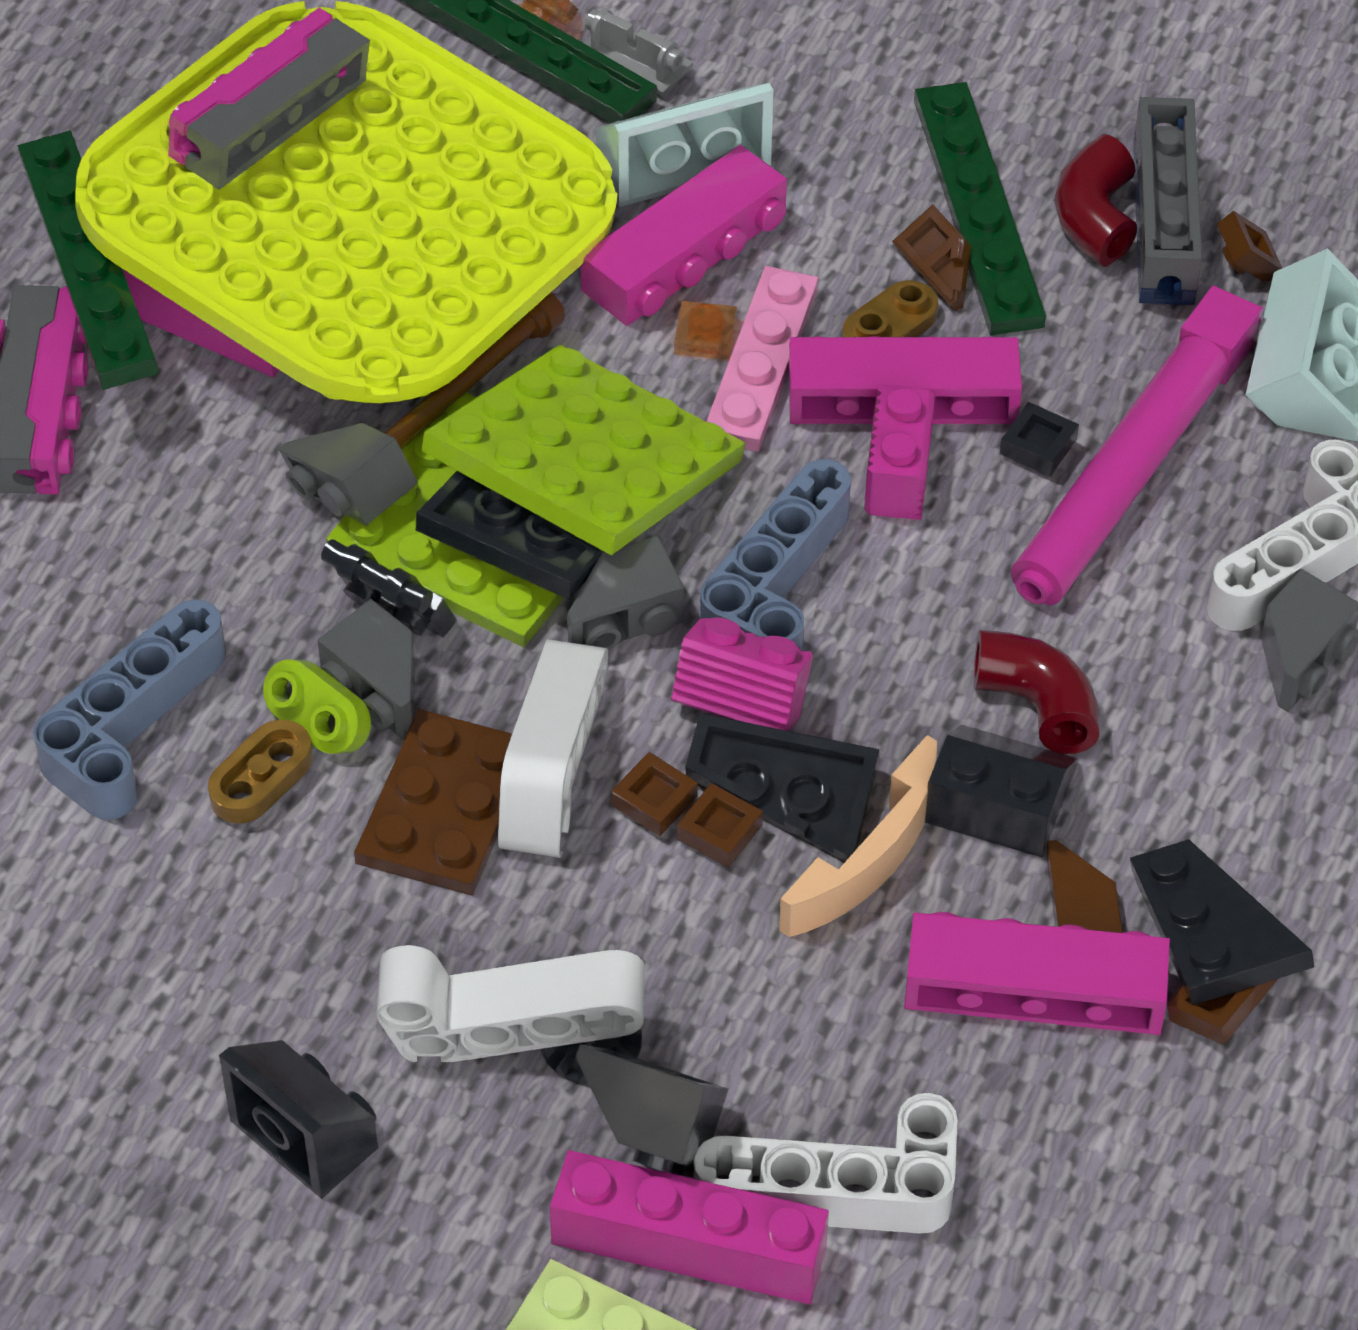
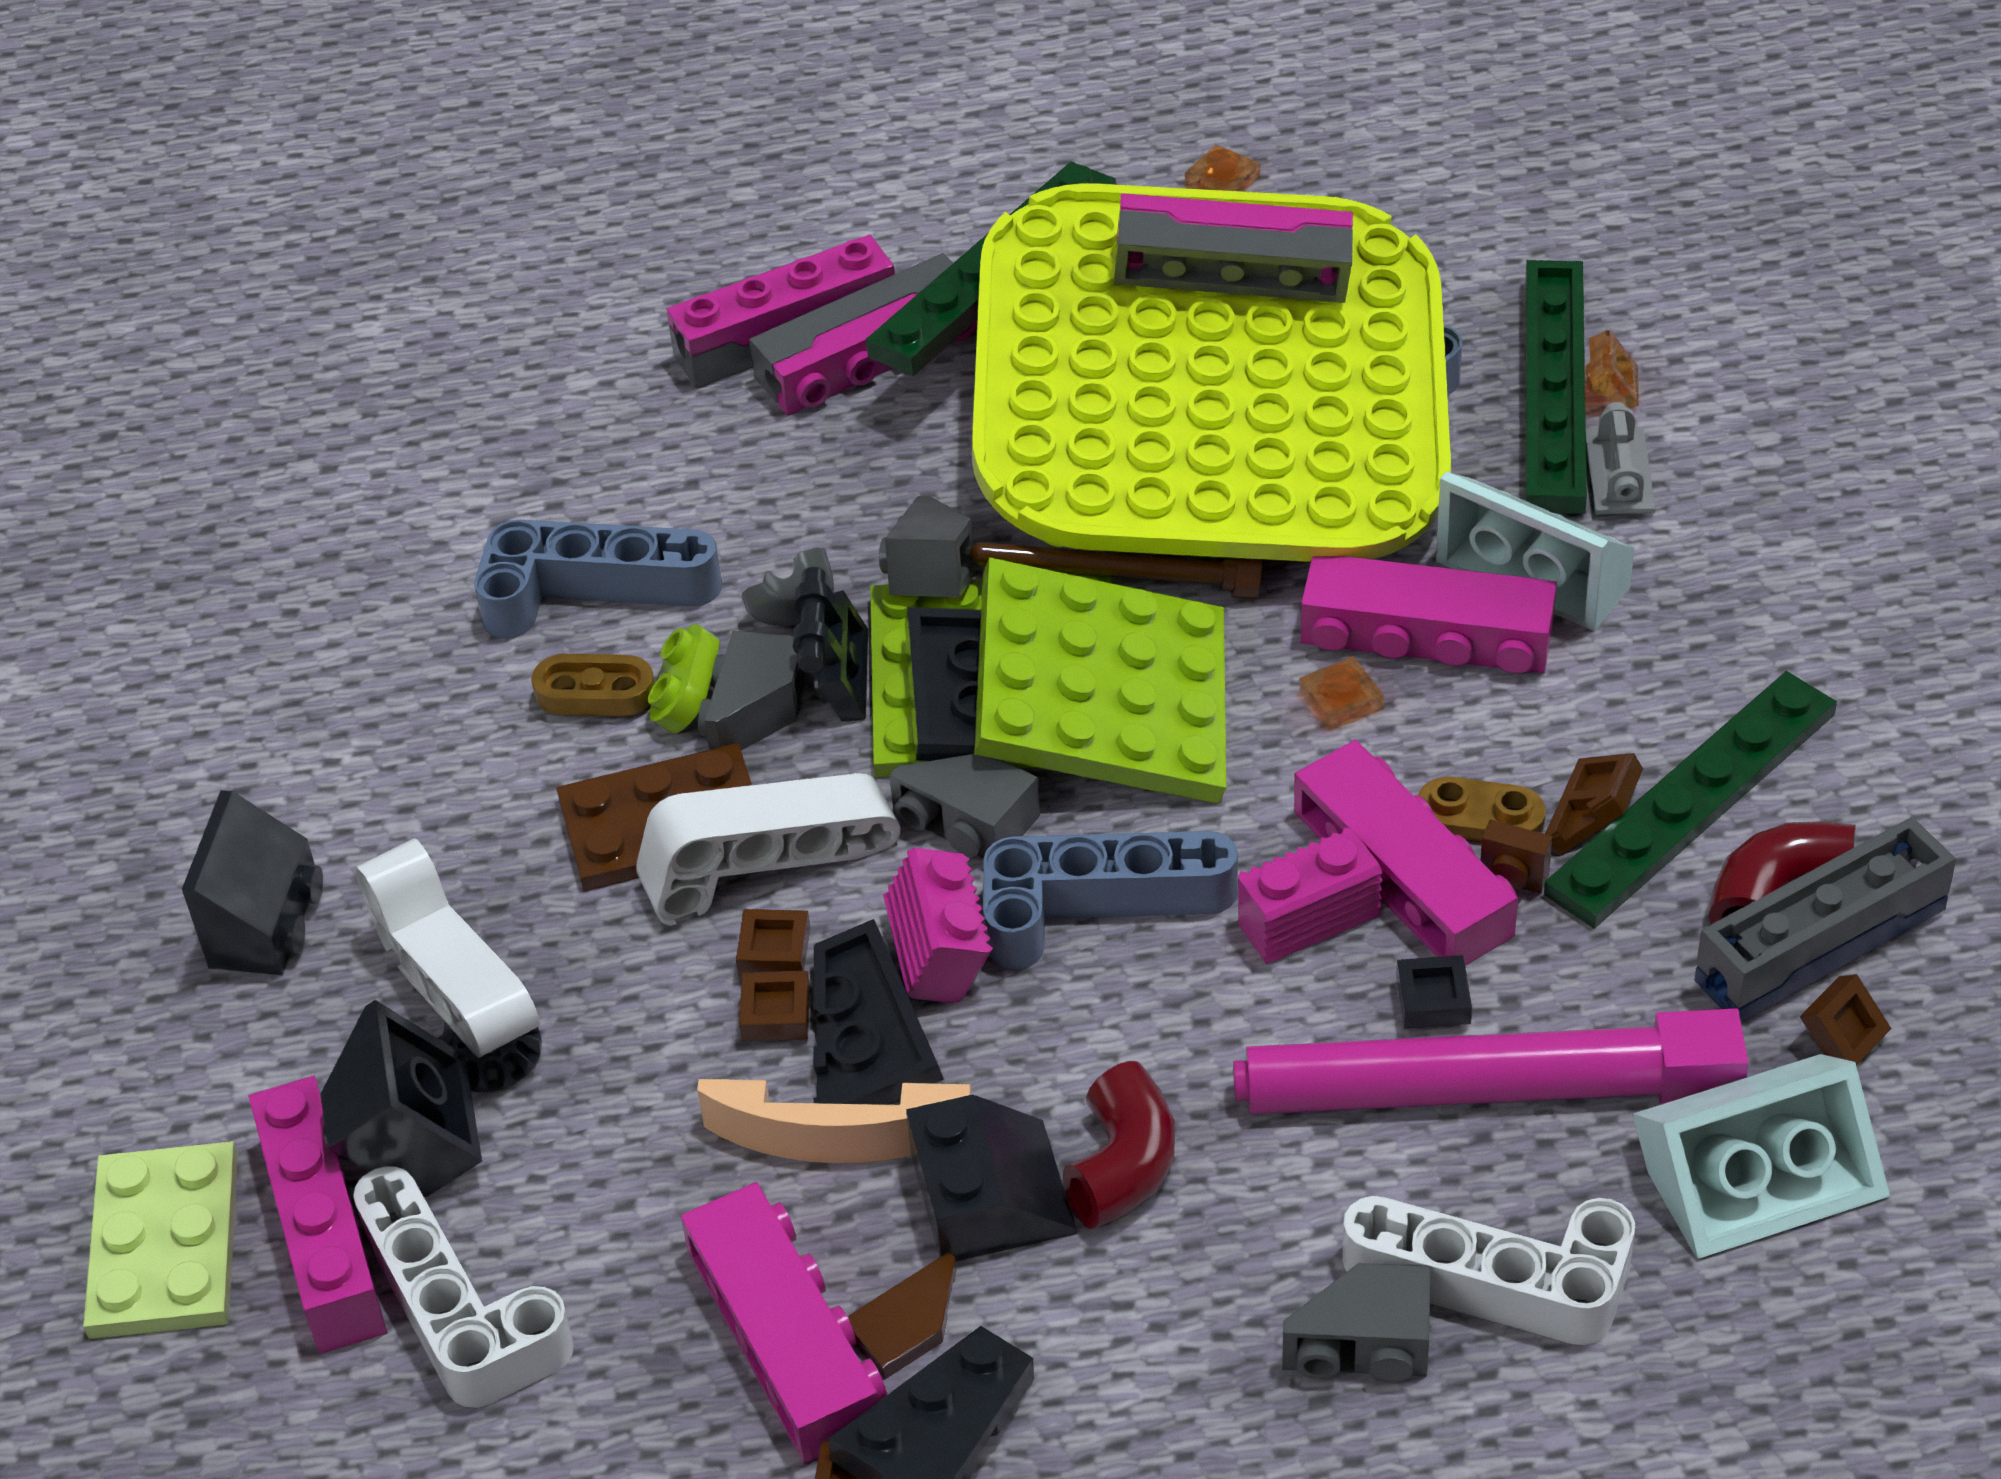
camera: 60 degrees right, 5 degrees down
(78, 84) = (1222, 171): none -> clear orange plate
(294, 582) = (775, 597): none -> dark grey hair
(762, 354) = (1392, 732): bright pink plate -> none
(963, 316) = (1517, 855): none -> reddish brown plate

